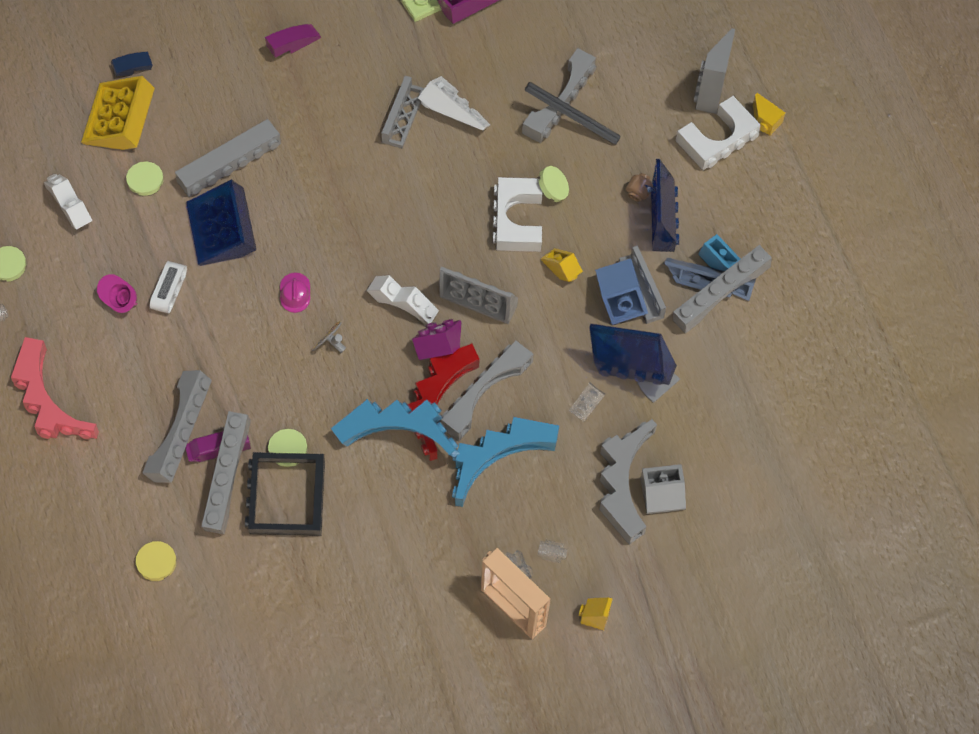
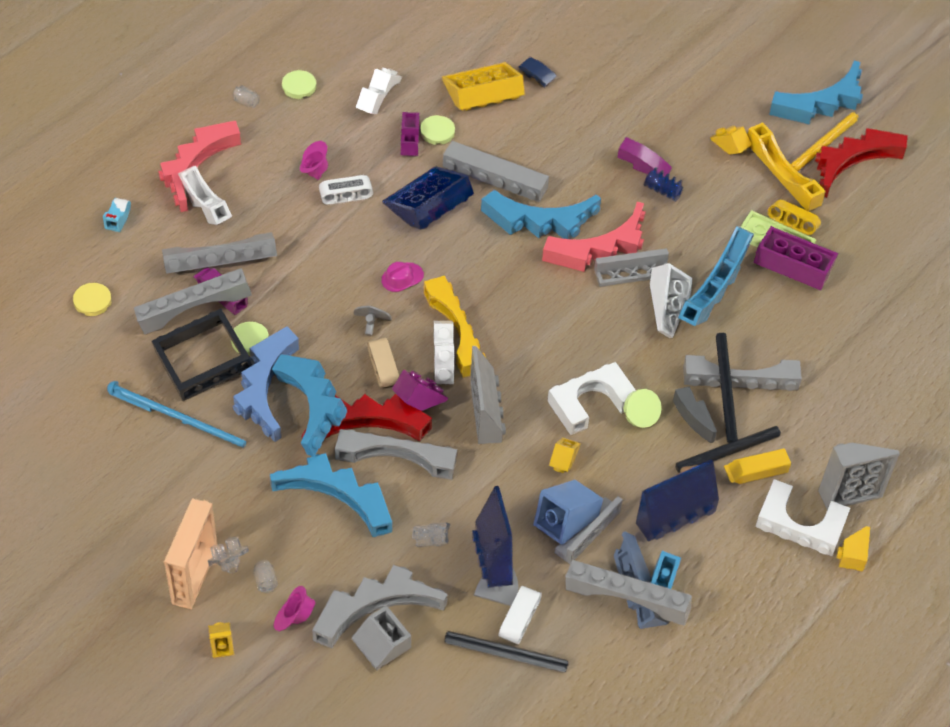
camera: 60 degrees right, 10 degrees down
(67, 494) = (117, 213): none -> medium azure leg
(96, 410) = (202, 196): none -> white arch
(135, 202) = (410, 133): none -> magenta slope
(307, 154) = (538, 220): none -> dark azure arch
(310, 565) = (115, 390): none -> dark azure bar
(330, 38) = (664, 184): none -> clear blue piece
(341, 272) = (441, 297): none -> yellow arch
(343, 462) = (257, 379): none -> medium blue arch
(363, 142) = (579, 253): none -> coral arch
(384, 353) = (383, 362): none -> tan beam
(455, 47) = (699, 306): none -> dark azure arch
(579, 150) = (695, 413): none -> dark grey slope
(598, 544) = (295, 610): none -> dark pink piece
(624, 148) = (730, 448): none -> black axle
(655, 134) = (758, 466): none -> yellow piece
(695, 378) = (520, 614): none -> white beam
(720, 405) = (506, 651): none -> black axle

